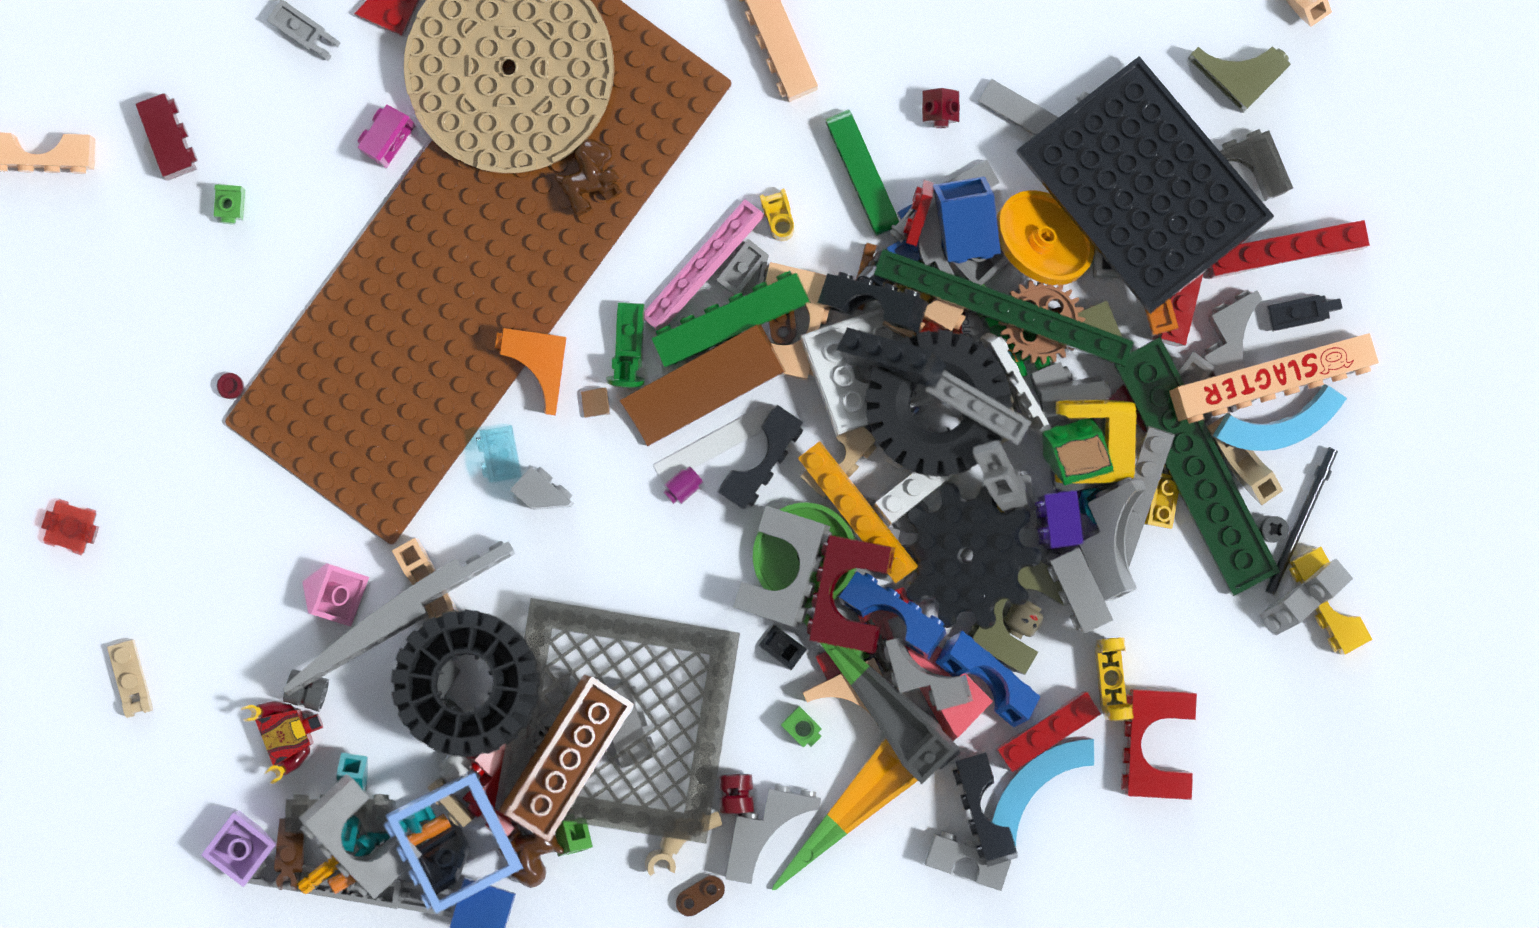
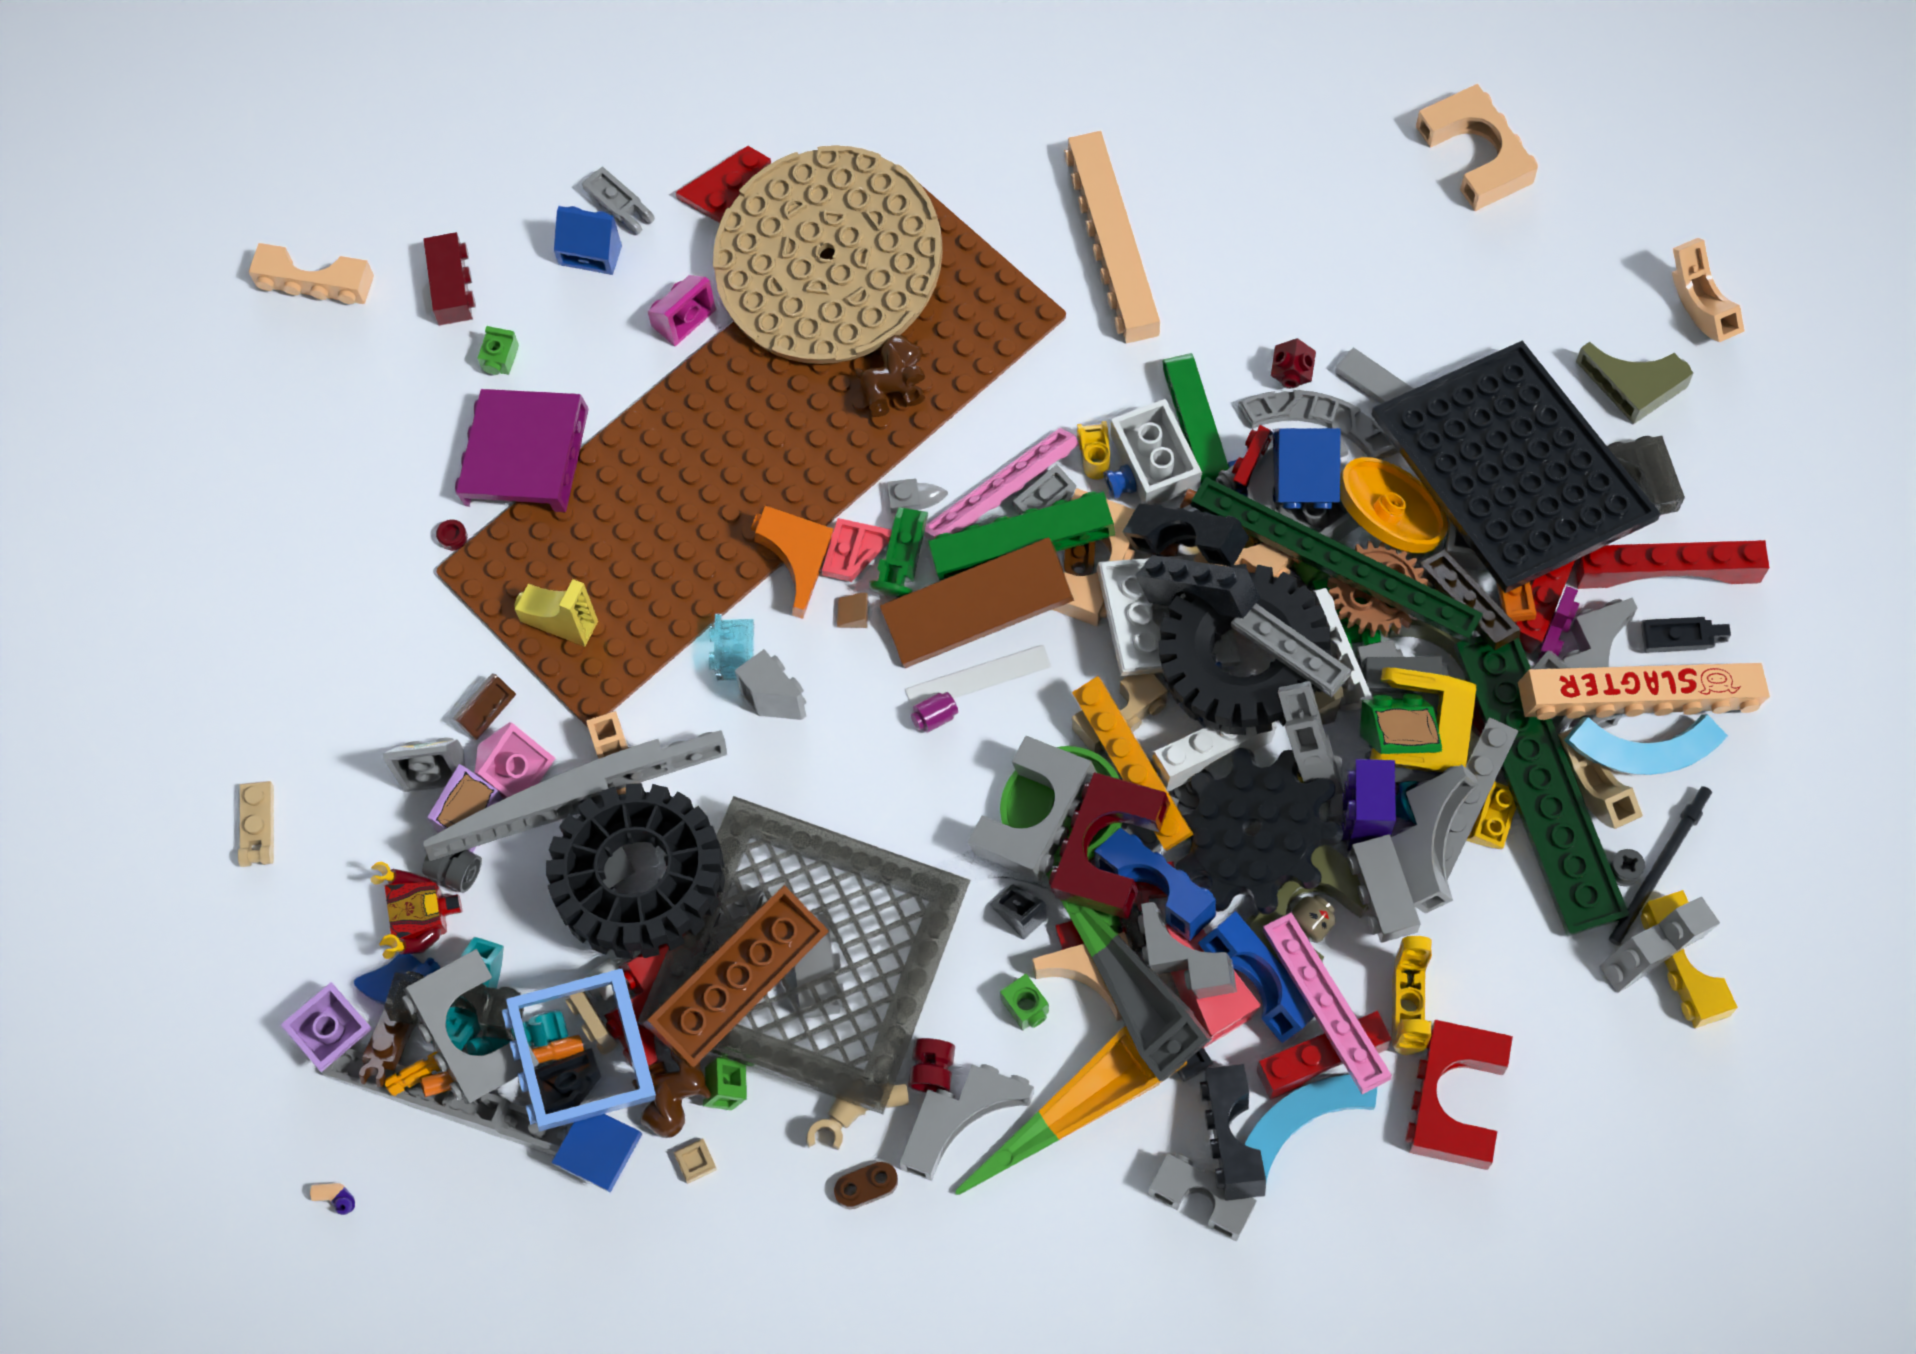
camera: 15 degrees right, 20 degrees down
(70, 527) = (235, 652): clear red piece -> none
(263, 604) = (425, 764): none -> light grey slope
(273, 796) = (378, 982): none -> blue arm
(274, 299) = (522, 447): none -> magenta panel
(285, 82) = (586, 240): none -> blue slope
(298, 543) = (484, 706): none -> reddish brown plate
(306, 639) = (461, 798): none -> slope
(341, 453) = (558, 612): none -> light yellow arch
(560, 899) = (695, 1161): none -> tan tile
(585, 345) = (853, 548): none -> coral wing
(628, 282) = (914, 495): none -> light grey plate
(780, 429) = (1003, 720): black arch -> none
(806, 244) = (1120, 481): none -> blue wheel
(833, 215) = (1156, 452): none -> white brick
(967, 143) = (1321, 410): none -> light grey tile
(1045, 696) = (1327, 1003): none -> bright pink plate
(1120, 319) = (1456, 583): none -> dark brown plate
(1202, 315) = (1561, 622): none -> magenta plate

